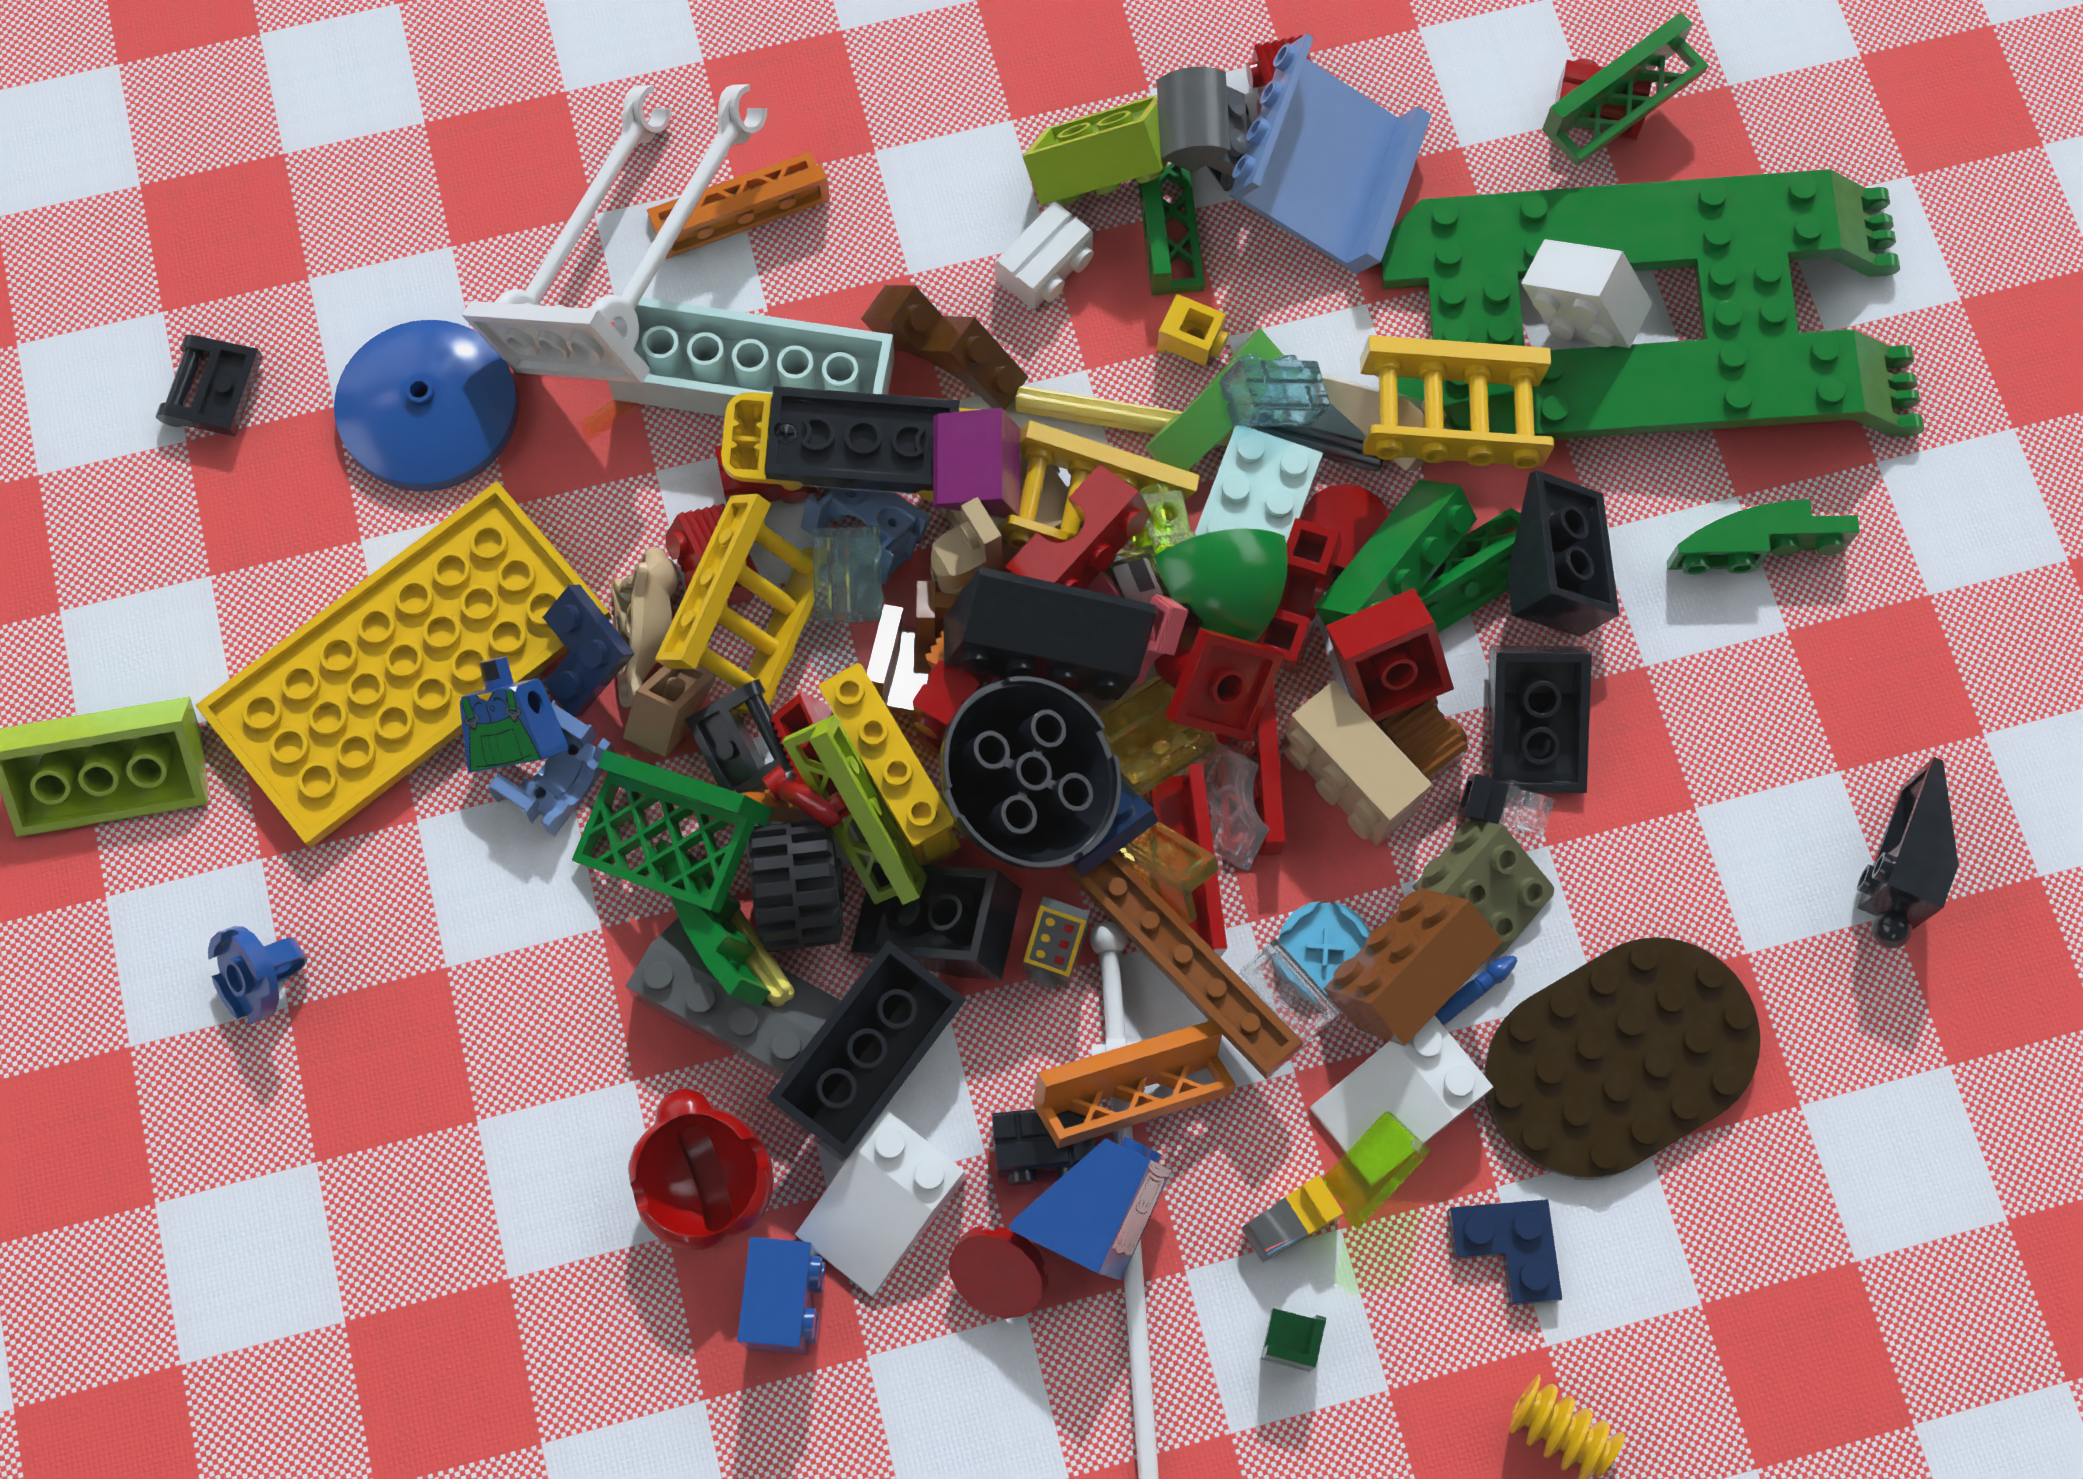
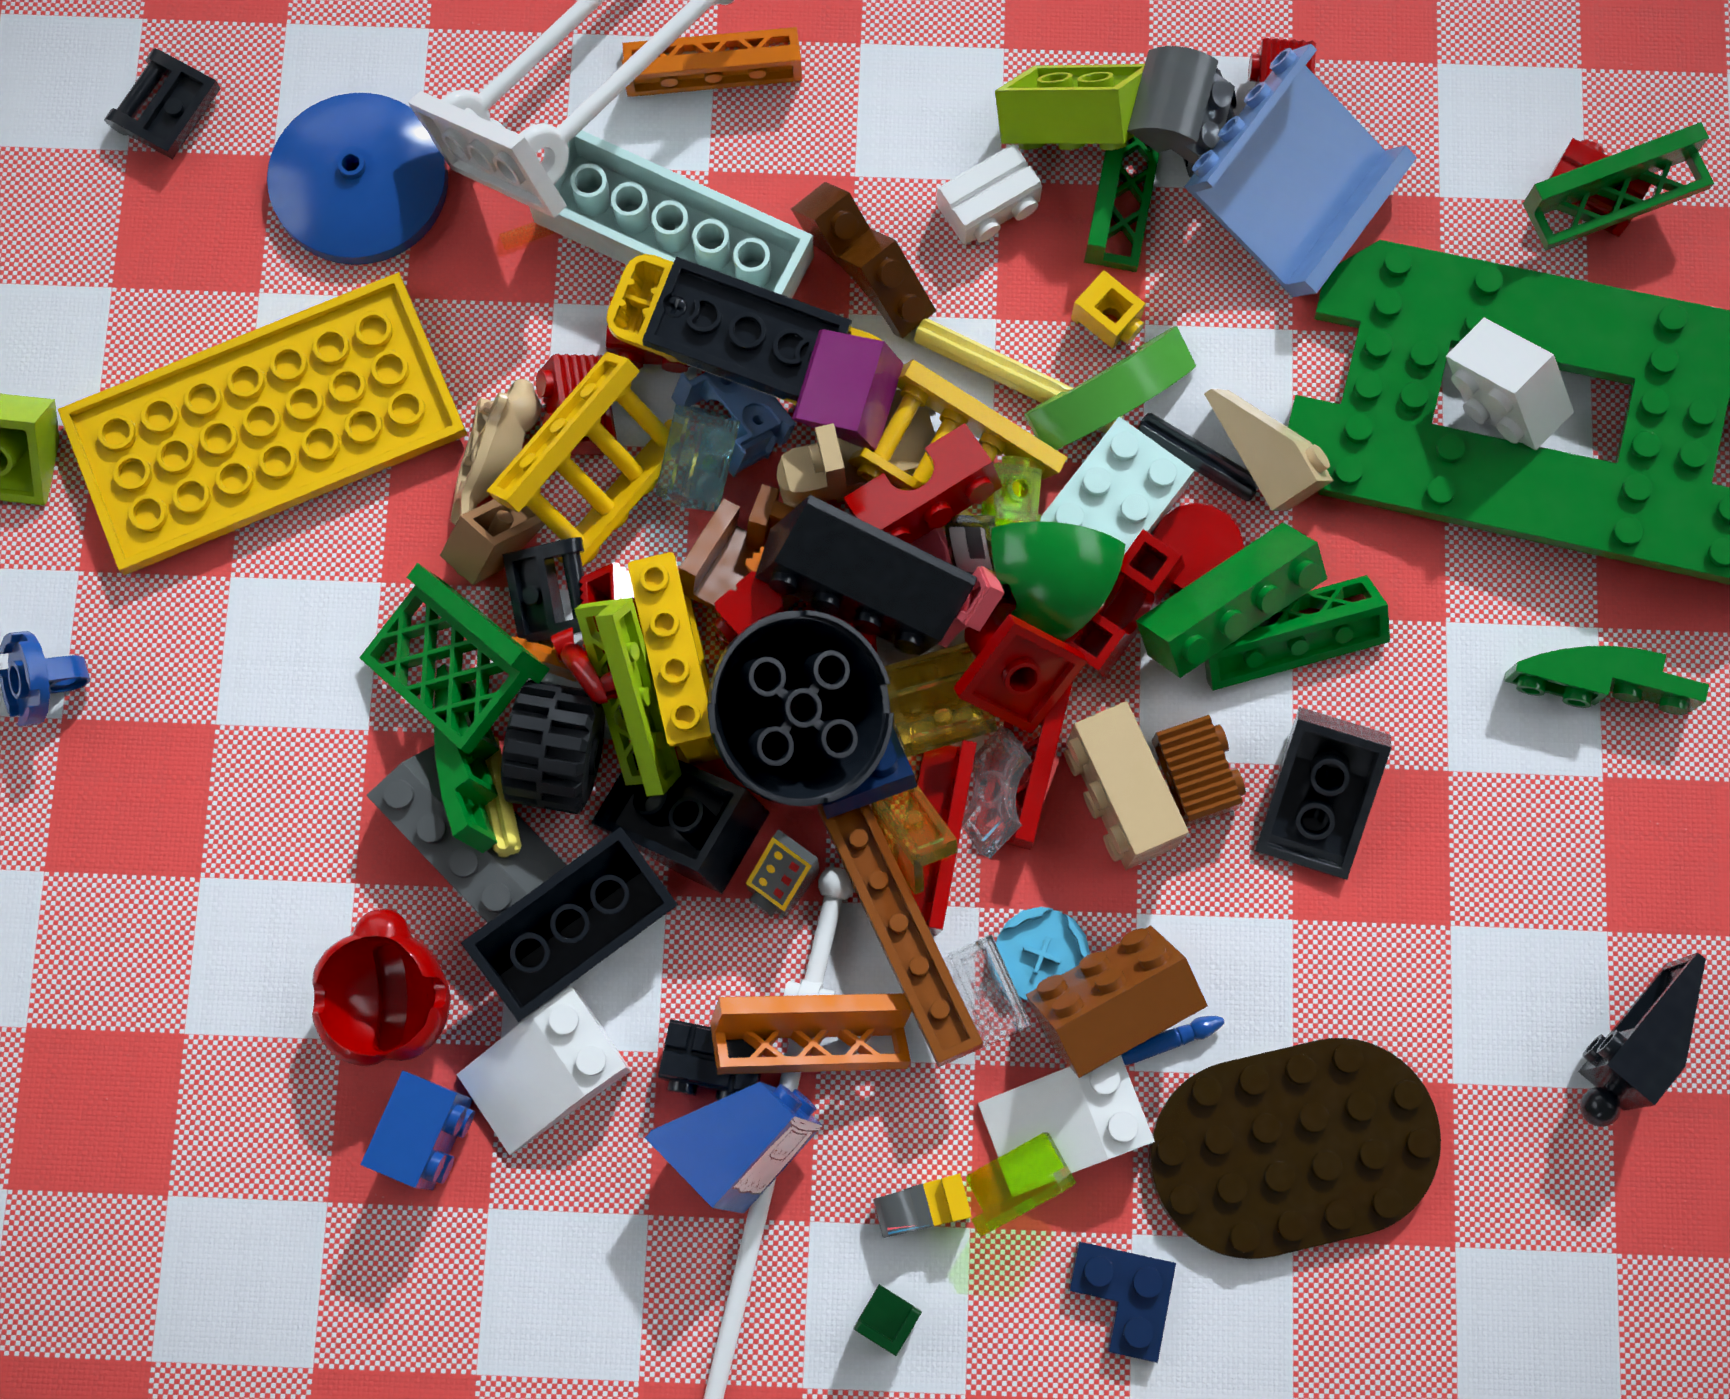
camera: 20 degrees right, 5 degrees up
(508, 721) = (335, 509): torso -> none
(562, 778) = (374, 577): medium blue piece -> none
(593, 646) = (437, 462): dark blue plate -> none
(998, 1272) = (628, 1171): red tile -> none
(1274, 391) = (1166, 395): clear light blue brick -> none
(1390, 656) = (1189, 694): red brick -> none
(1456, 361) = (1373, 427): yellow fence -> none
(1492, 873) = (1221, 938): olive bracket -> none
(1505, 805) = (1261, 870): leg -> none
(1562, 558) = (1397, 641): black slope -> none

